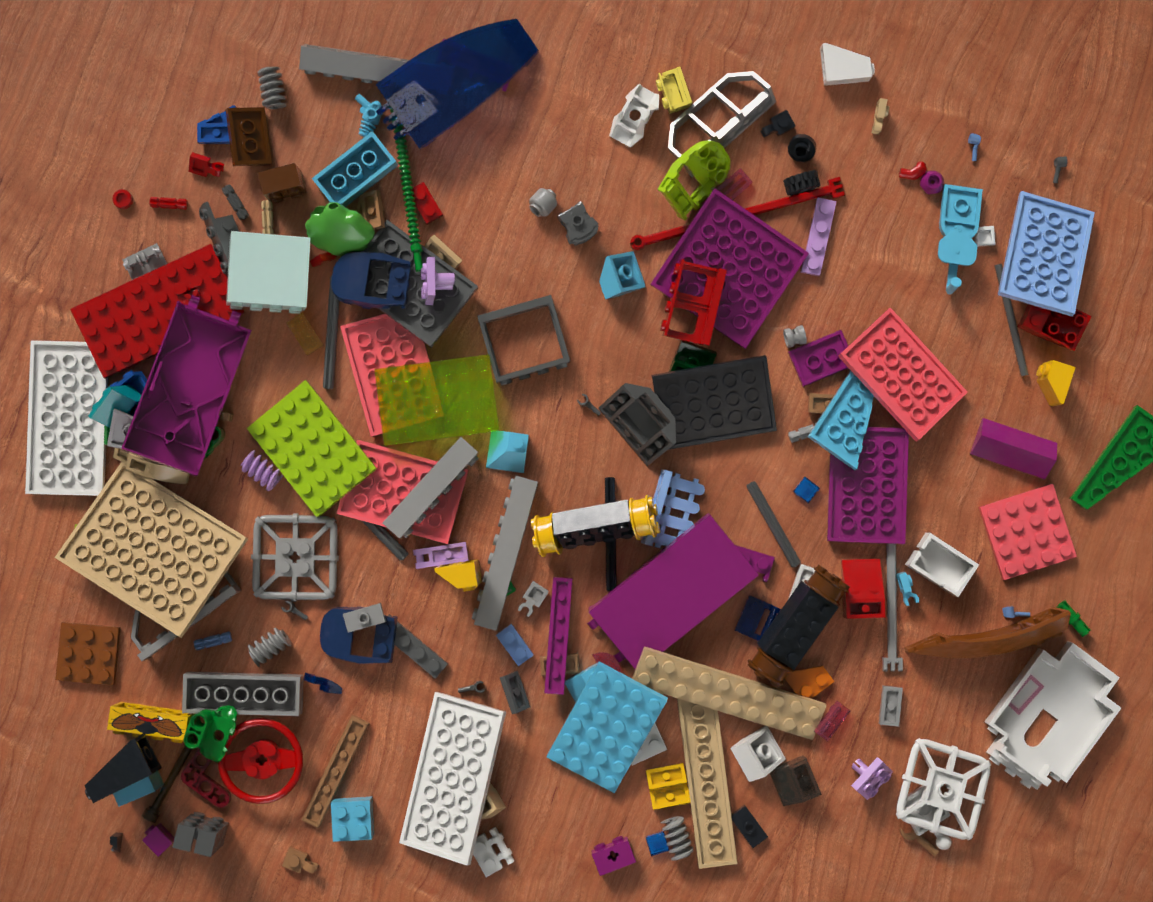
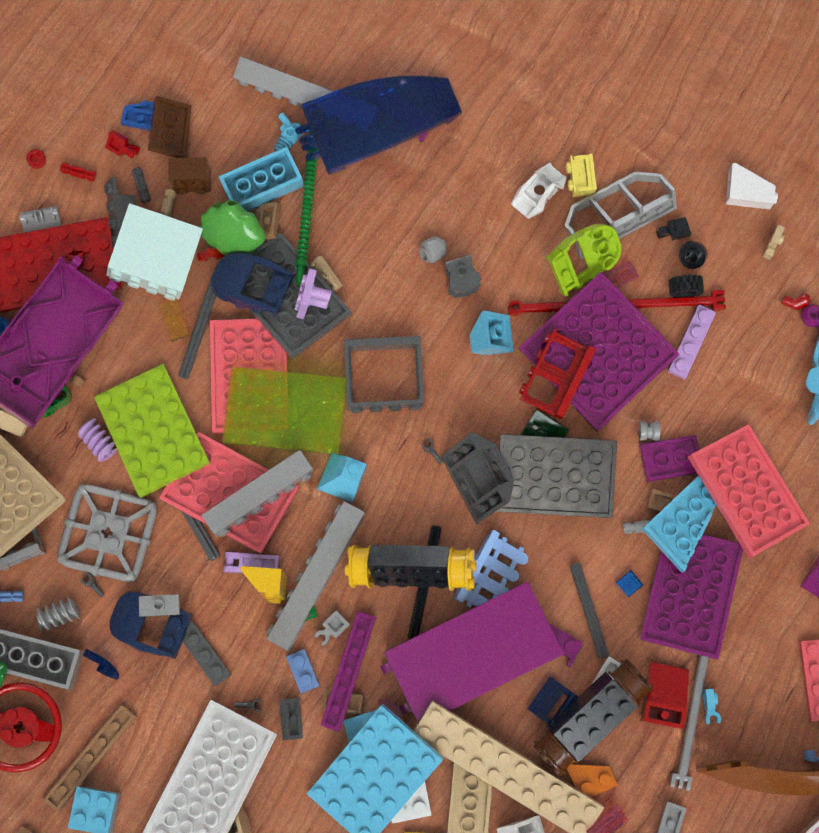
camera: 15 degrees right, 10 degrees down
(270, 88) = (202, 89): light grey piece -> none
(426, 204) = (321, 227): red plate -> none
(942, 564) = (751, 689): white piece -> none

